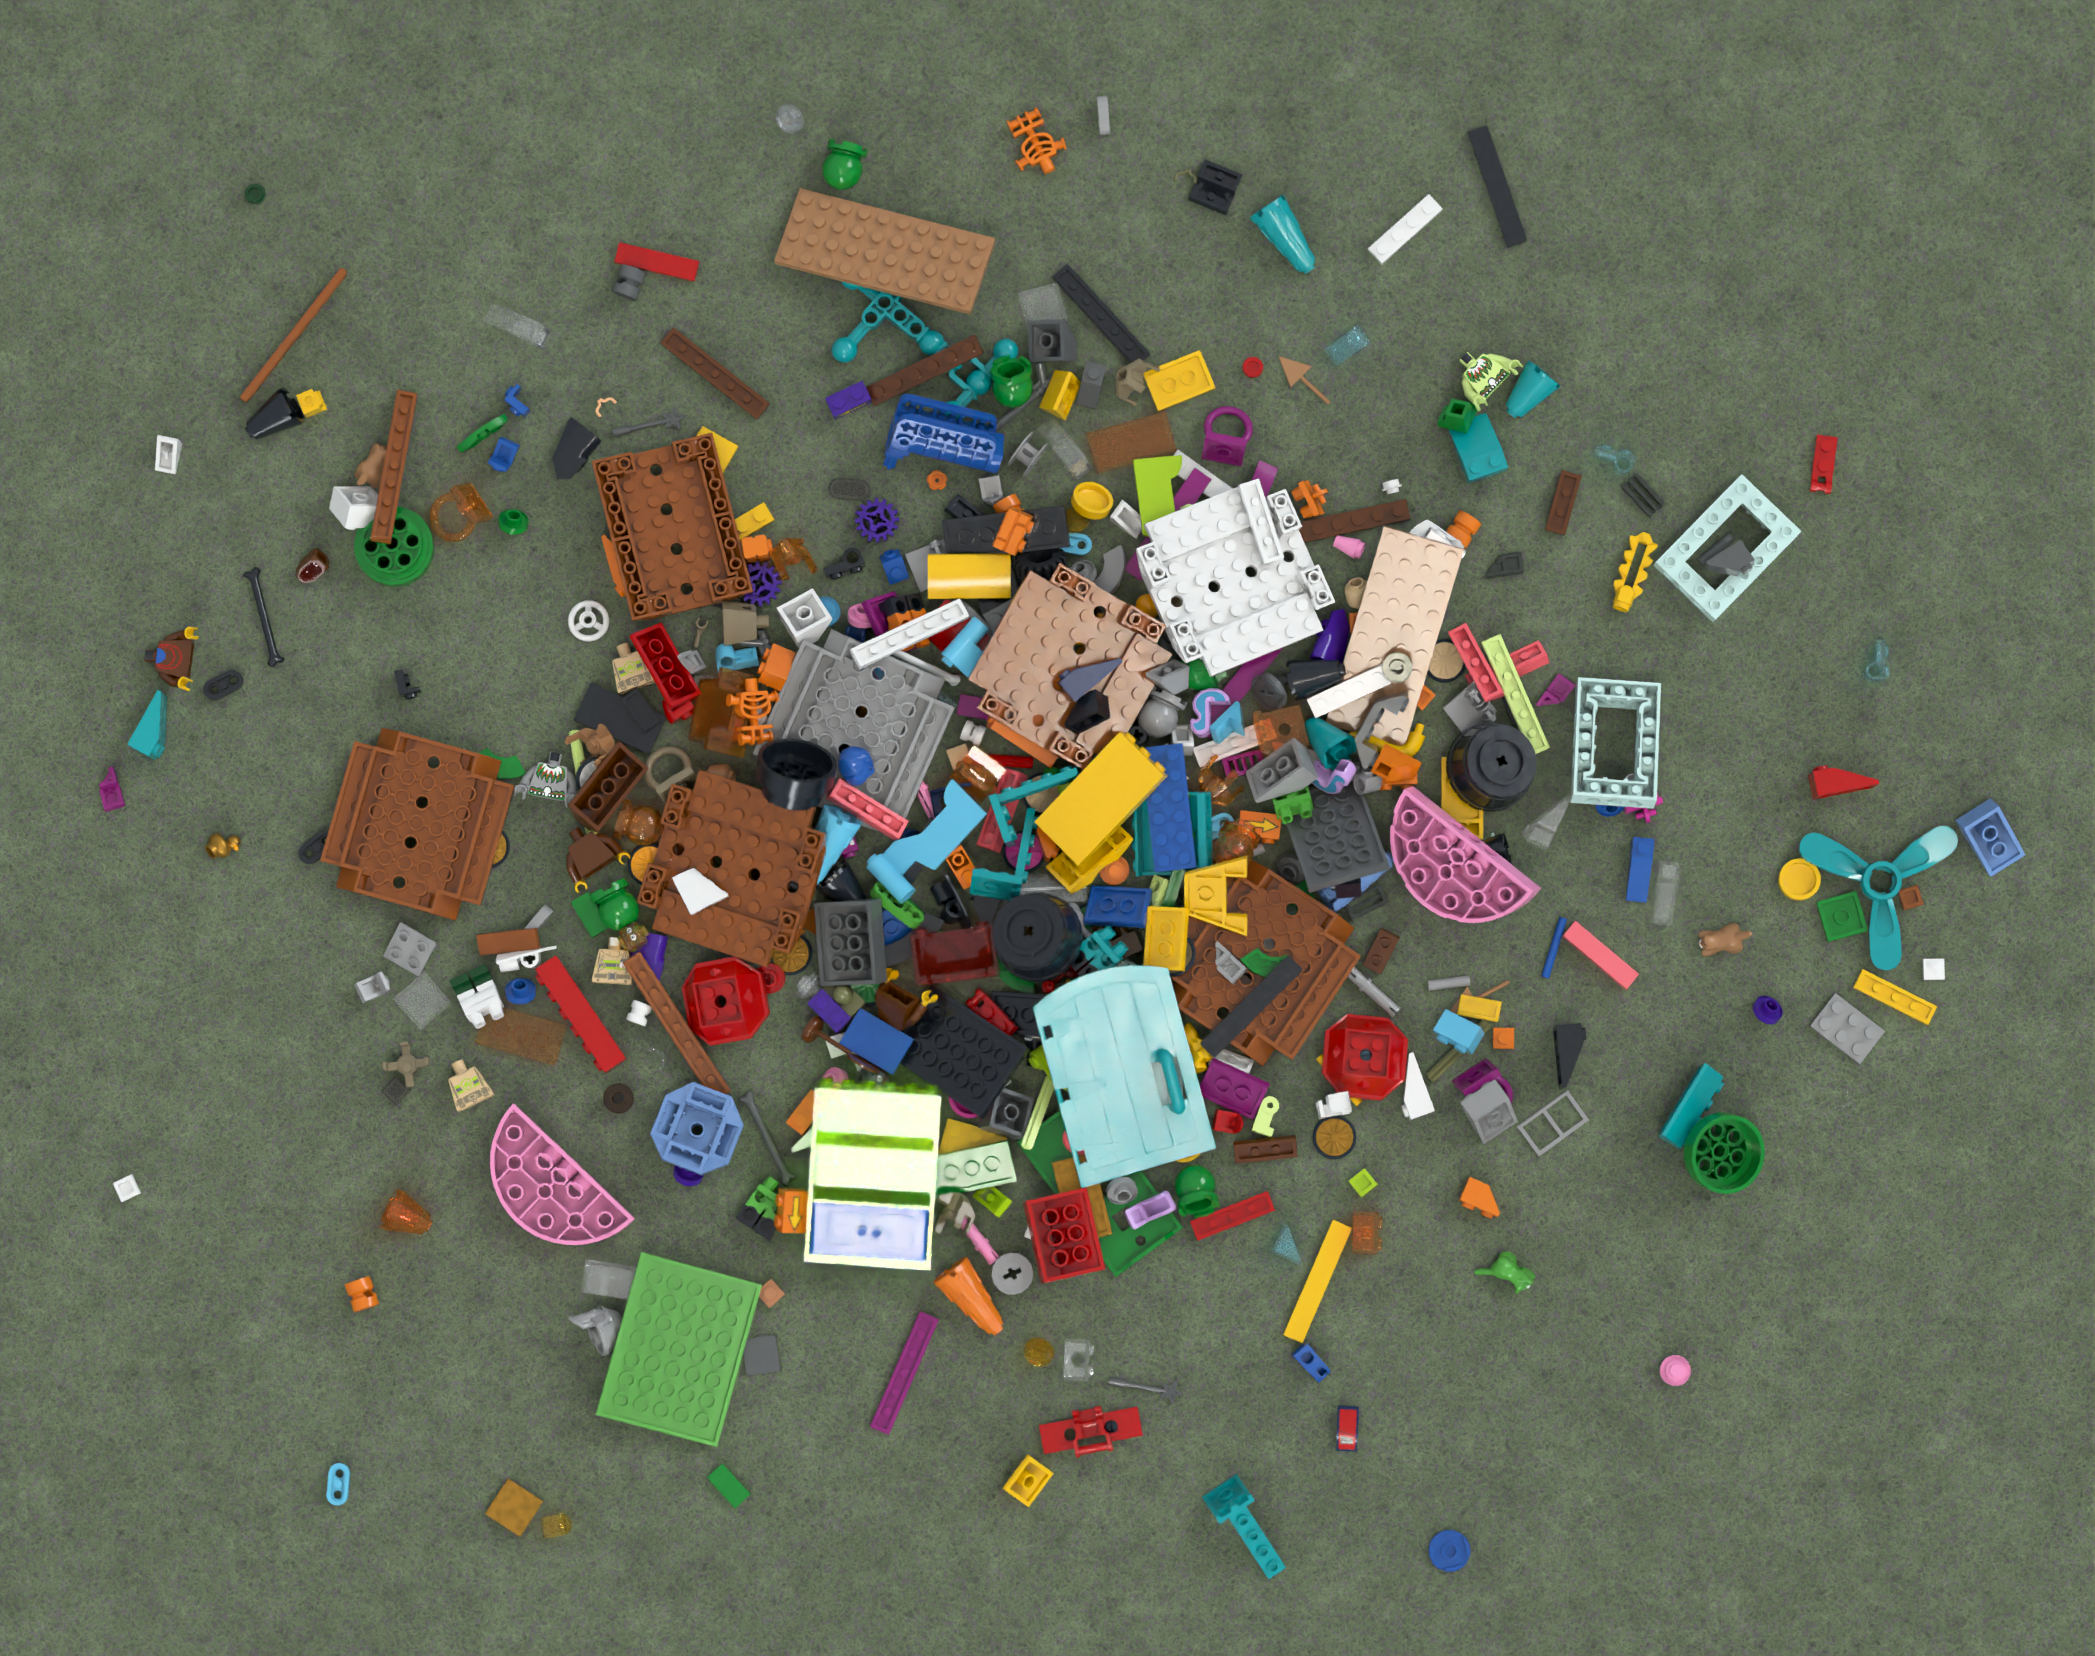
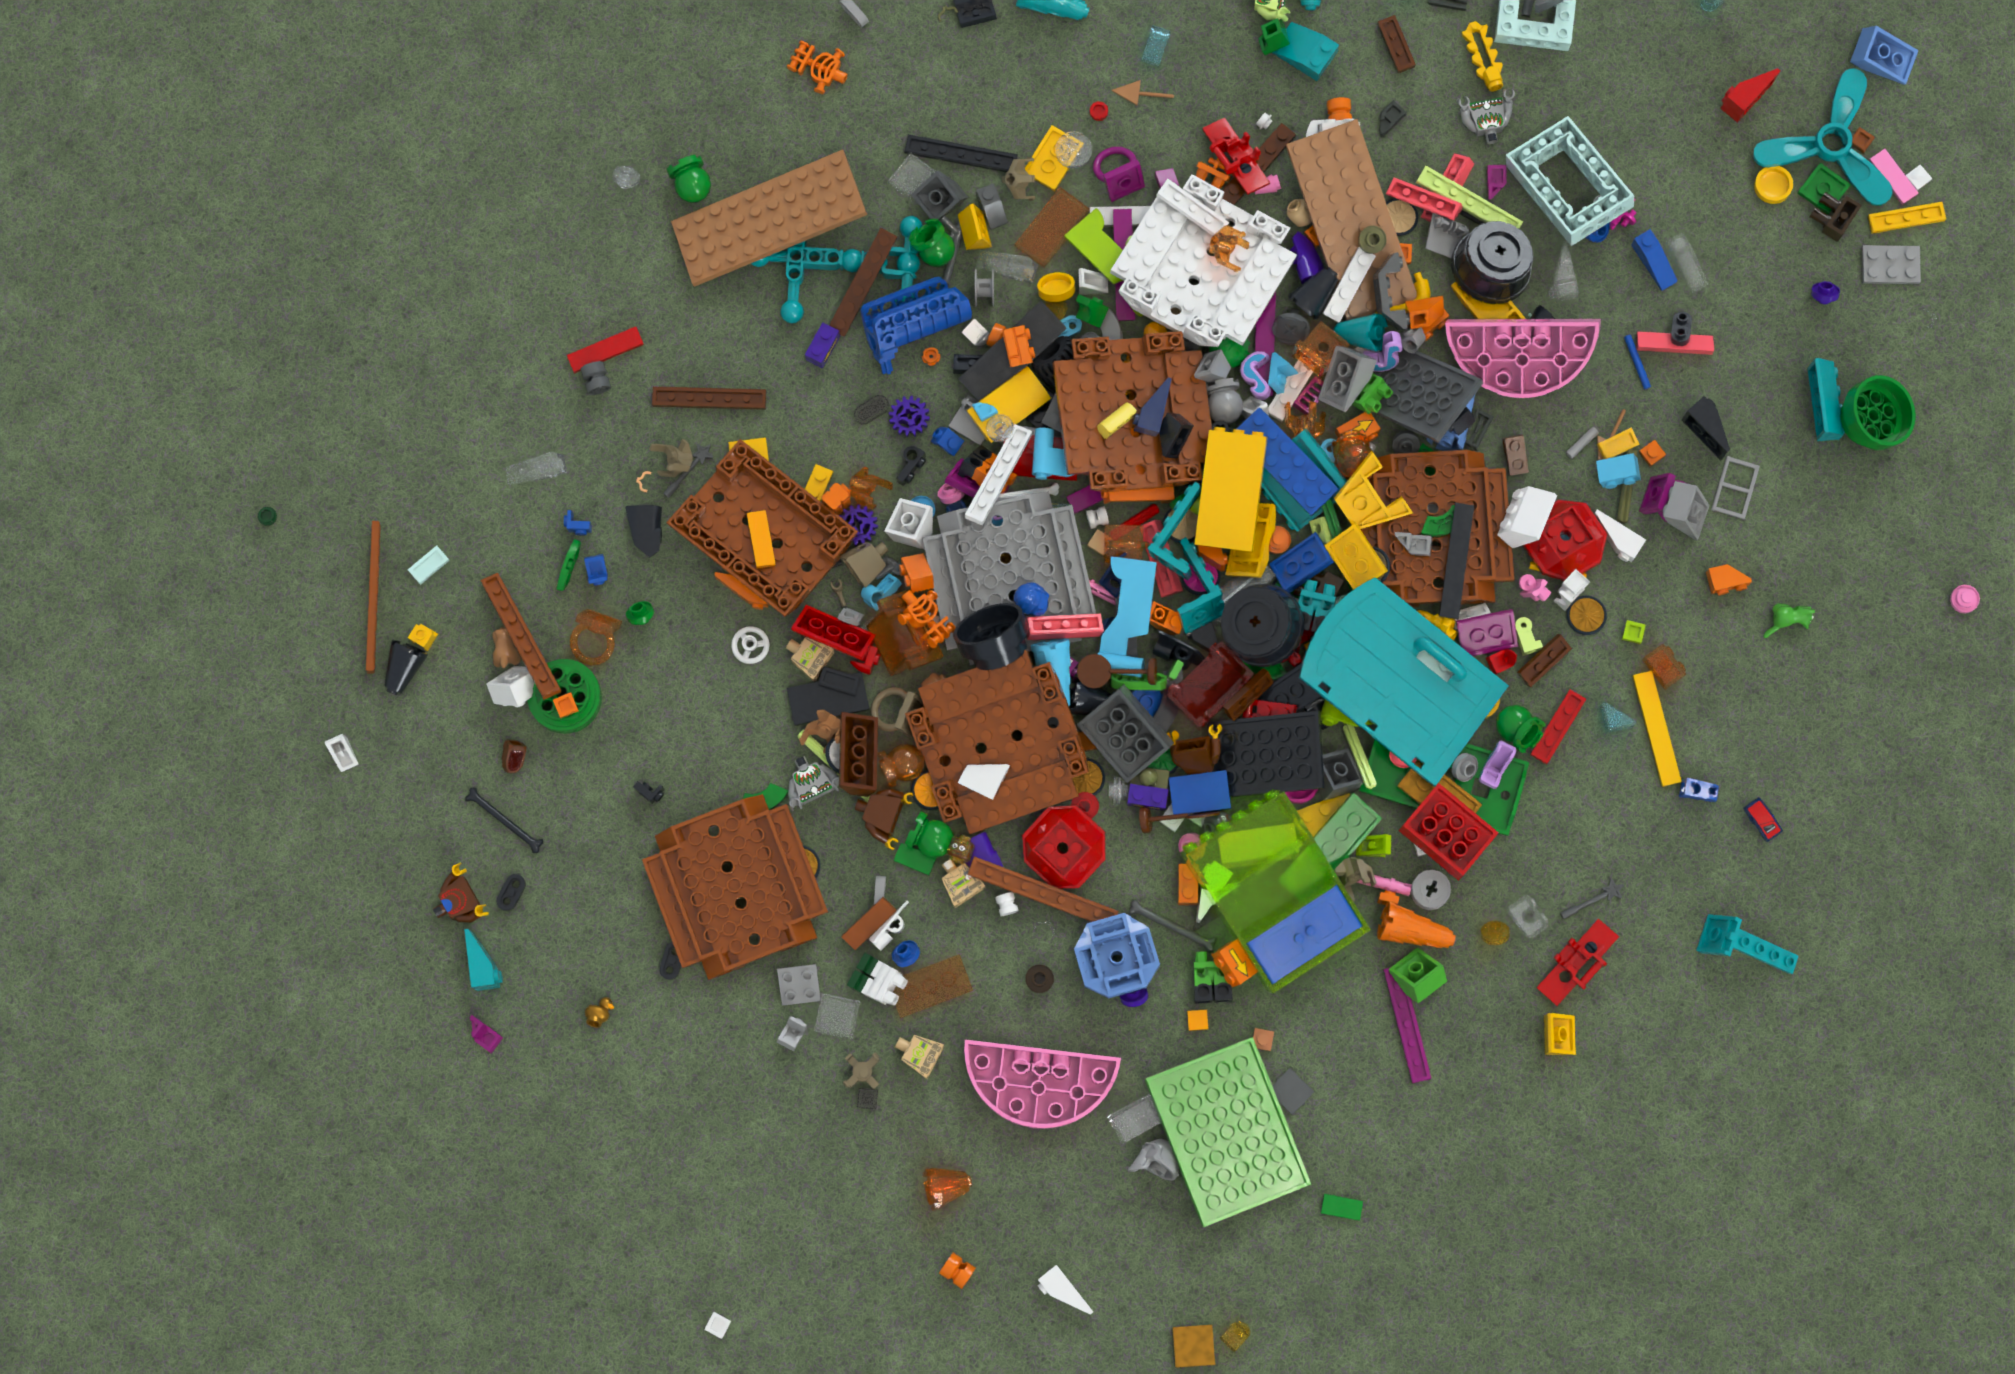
camera: 30 degrees left, 5 degrees down
(362, 341) = (428, 565): none -> light aqua tile
(385, 558) = (565, 705): none -> orange plate
(438, 1375) = (1059, 1287): none -> white slope
(580, 1013) = (963, 937): red brick -> none
(647, 409) = (678, 458): none -> dark tan piece
(663, 535) = (761, 539): none -> light orange tile
(727, 1235) = (1197, 1020): none -> light orange tile
(865, 868) = (1096, 671): none -> reddish brown piece
(934, 919) = (1174, 670): none -> bright green tile
(942, 567) = (984, 410): none -> medium azure tile
(943, 592) = (1000, 428): none -> clear plate
(944, 1338) = (1418, 975): none -> bright green slope
(970, 1252) = (1387, 896): none -> orange plate
(982, 987) = (1248, 694): none -> reddish brown plate
(1046, 662) = (1116, 420): none -> light yellow brick
(1106, 544) = (1091, 310): none -> green brick
(1201, 387) = (1073, 149): none -> clear tile
(1262, 574) = (1224, 243): none -> clear orange piece
(1303, 1079) = (1533, 588): none -> bright pink hips
(1344, 1012) = (1526, 516): none -> white slope
(1347, 499) = (1243, 156): none -> red piece
(1366, 985) = (1550, 488): light grey pin -> none
(1444, 1546) = (1902, 857): blue tile -> none
(1592, 629) = (1487, 116): none -> light grey torso
(1616, 946) = (1681, 327): none -> black plate
(1727, 939) = (1756, 262): medium nougat animal -> none
(1837, 953) = (1843, 211): none -> dark brown brick
(1912, 951) = (1901, 186): none -> bright pink tile

